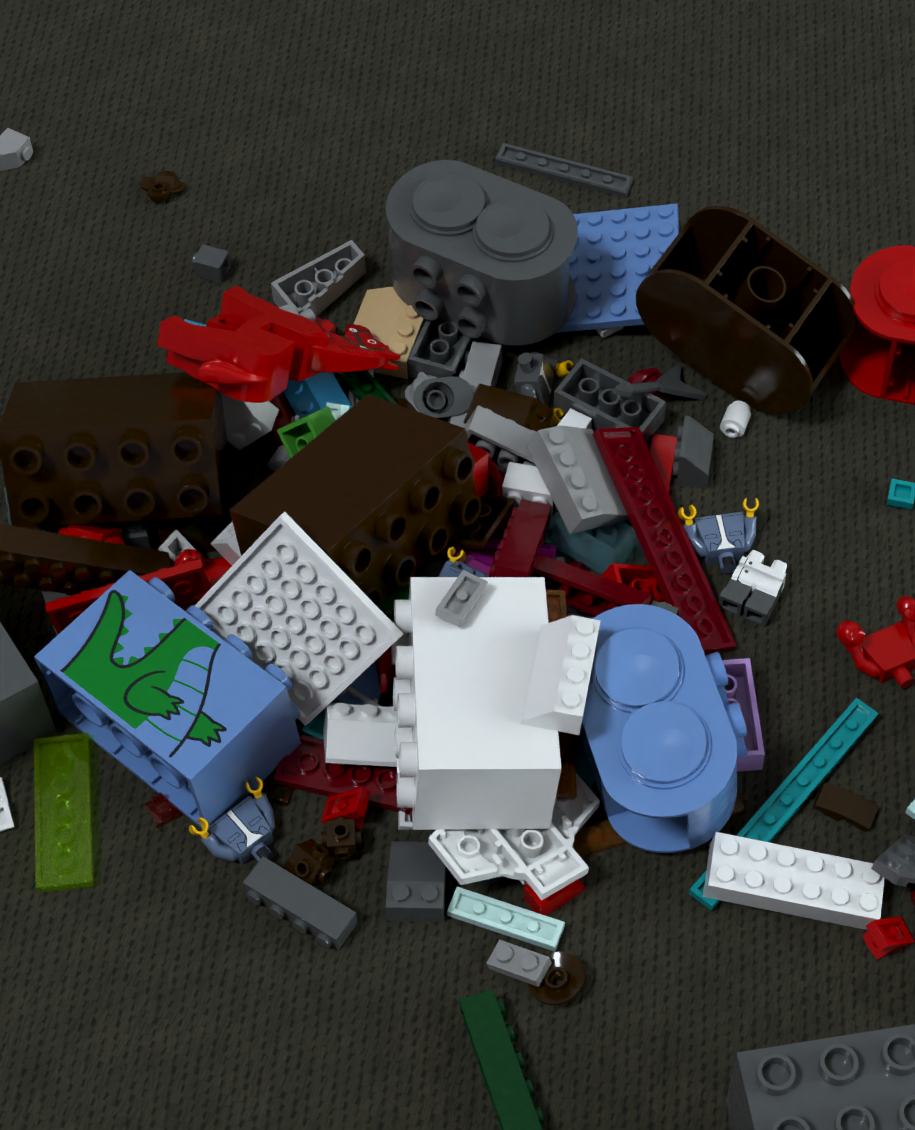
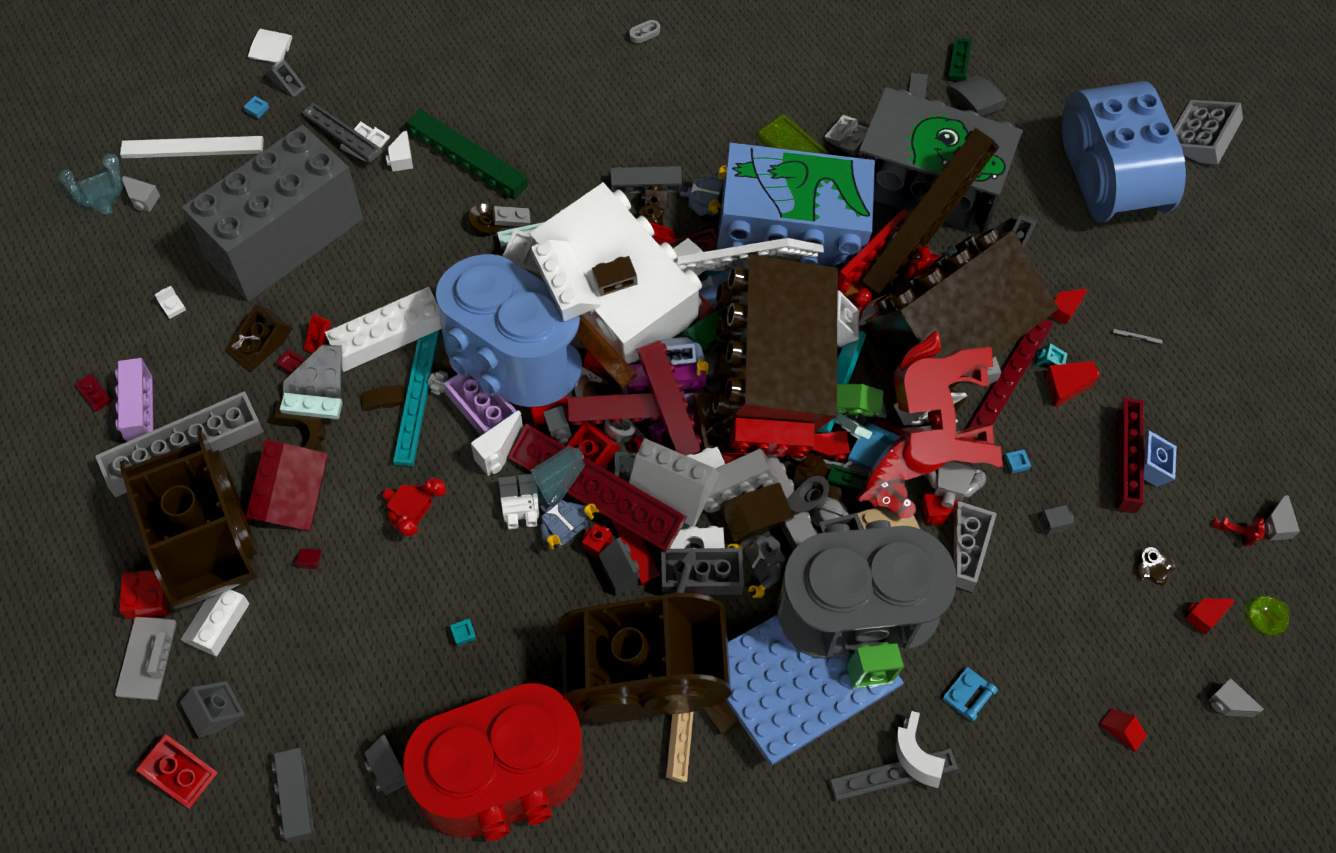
camera: 140 degrees right, 5 degrees up
(45, 155) = (1252, 533): none -> red piece
(53, 365) = (1070, 380): none -> red slope
(62, 248) = (1159, 460): none -> medium blue slope
(78, 271) = (1130, 455): none -> dark red brick
(108, 98) = (1269, 615): none -> clear neon green dish
(158, 124) = (1207, 613): none -> red slope
(217, 61) = (1234, 701): none -> light grey slope
(329, 97) = (1125, 728): none -> red slope
(461, 598) = (656, 288): light grey plate -> none
(500, 639) = (614, 275): none -> dark brown brick
(537, 146) = (916, 762): none -> white arch
(697, 568) = (558, 474): none -> clear light blue slope
(699, 493) = (596, 540): none -> red brick
(751, 640) = (495, 445): none -> white slope
(764, 778) = (436, 382): none -> light grey gear

